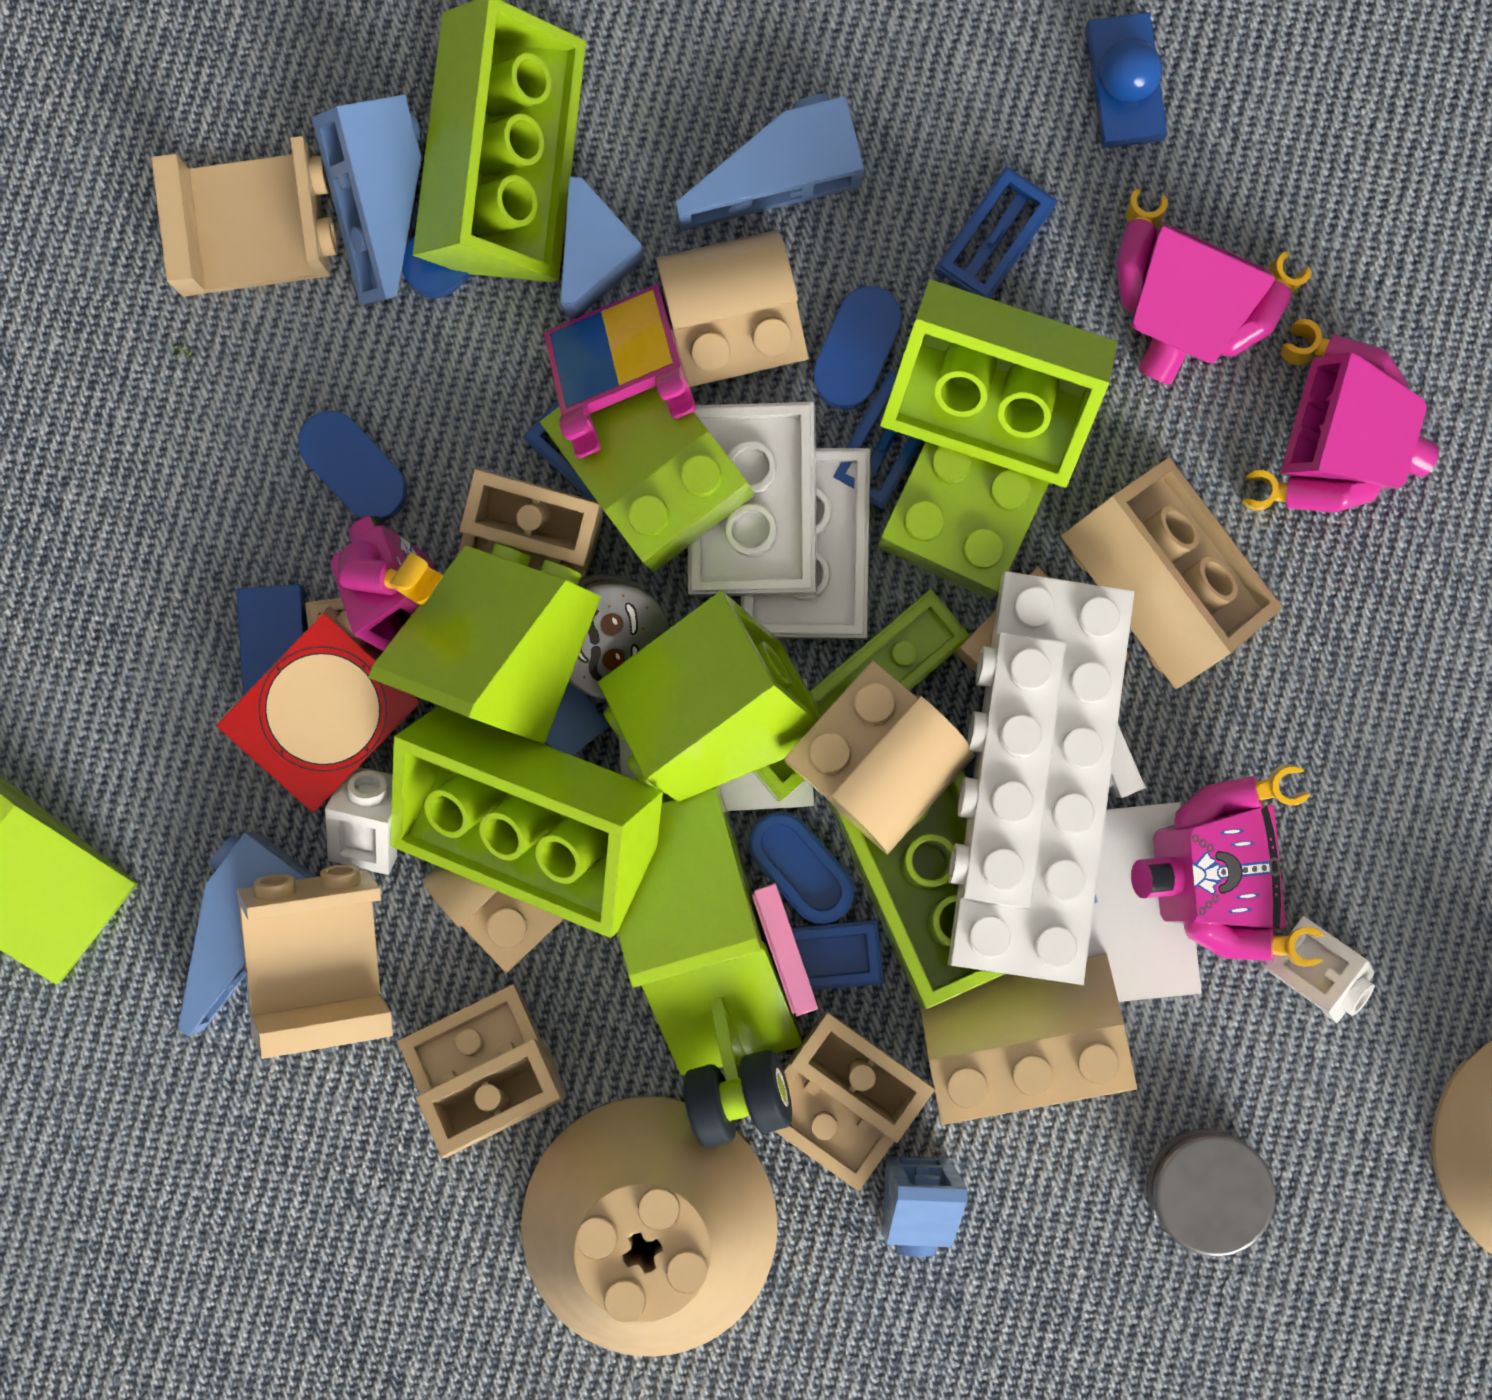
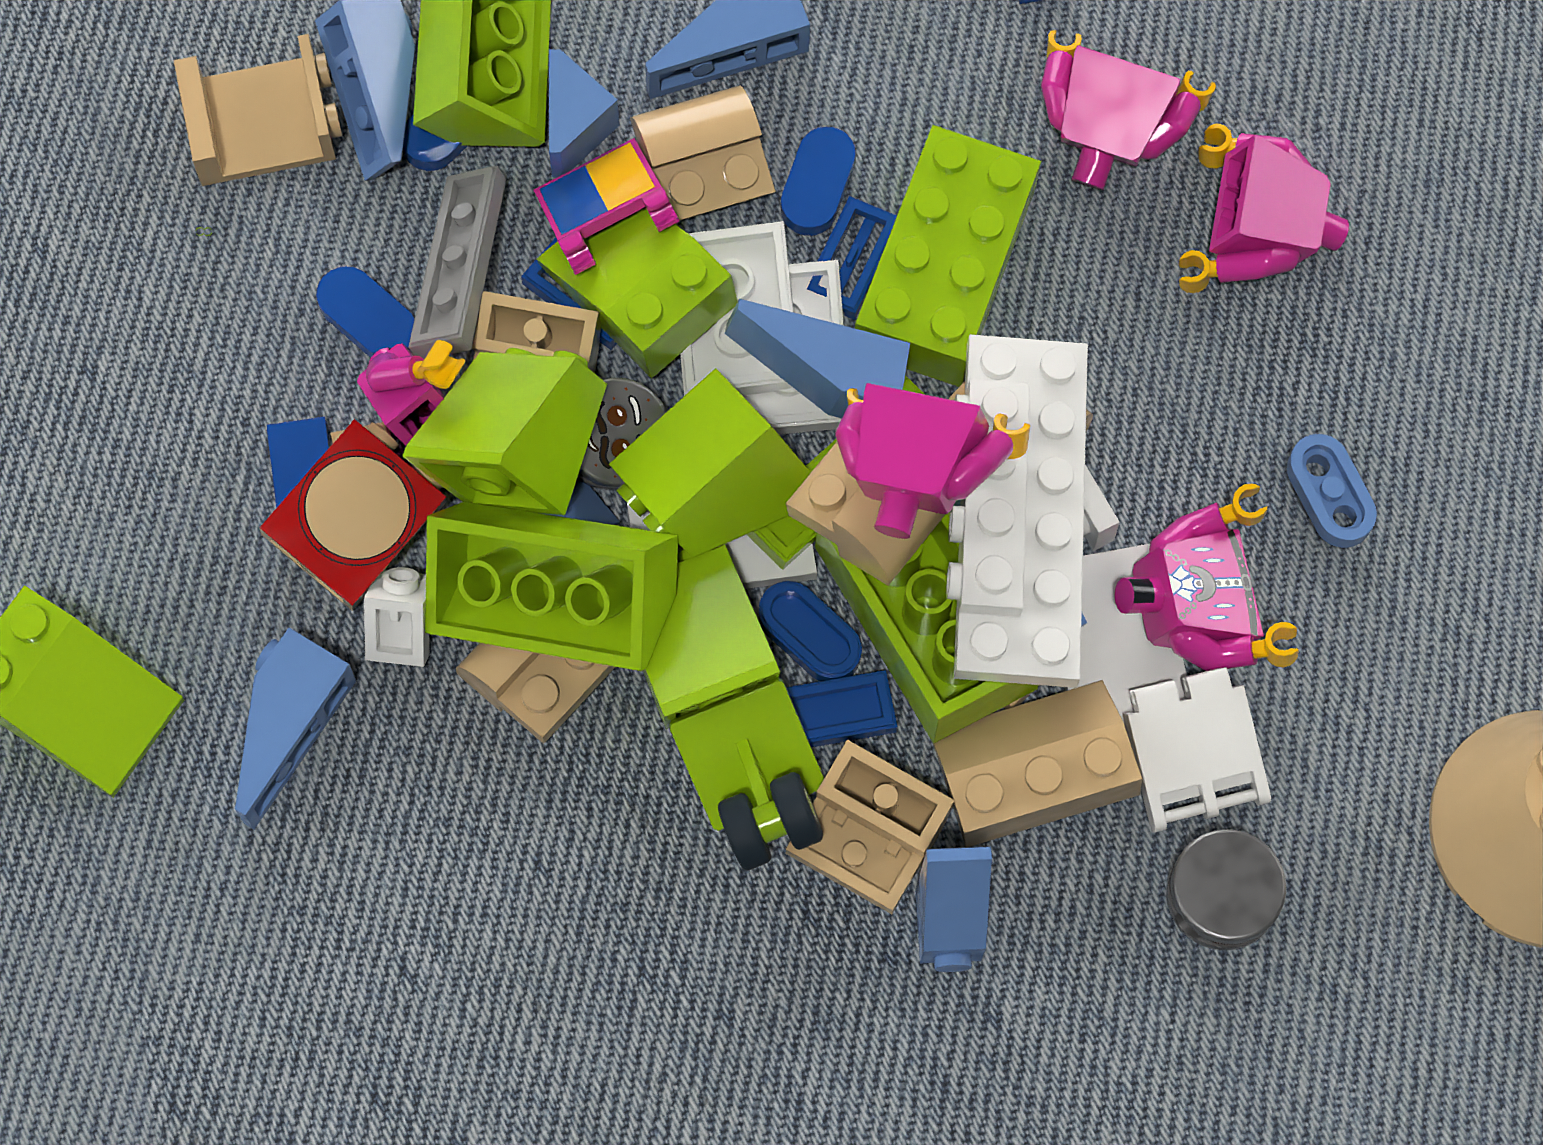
camera: 10 degrees left, 15 degrees down
(312, 961) = (357, 733): tan panel -> none
(451, 427) = (458, 261): none -> light grey tile
(481, 1071) = (524, 830): tan brick -> none
(645, 1172) = (686, 1022): tan cone -> none
(784, 949) = (803, 692): bright pink tile -> none
(851, 586) = (818, 355): none -> medium blue slope
(933, 737) = (920, 451): none -> dark pink torso
(966, 278) = (912, 117): blue tile -> none
(999, 383) = (945, 178): lime slope -> none
(1188, 576) = (1137, 352): tan slope -> none
(1196, 1036) = (1195, 747): none -> white plate
(1336, 983) = (1313, 683): white bracket -> none
(1383, 755) = (1335, 492): none -> medium blue plate

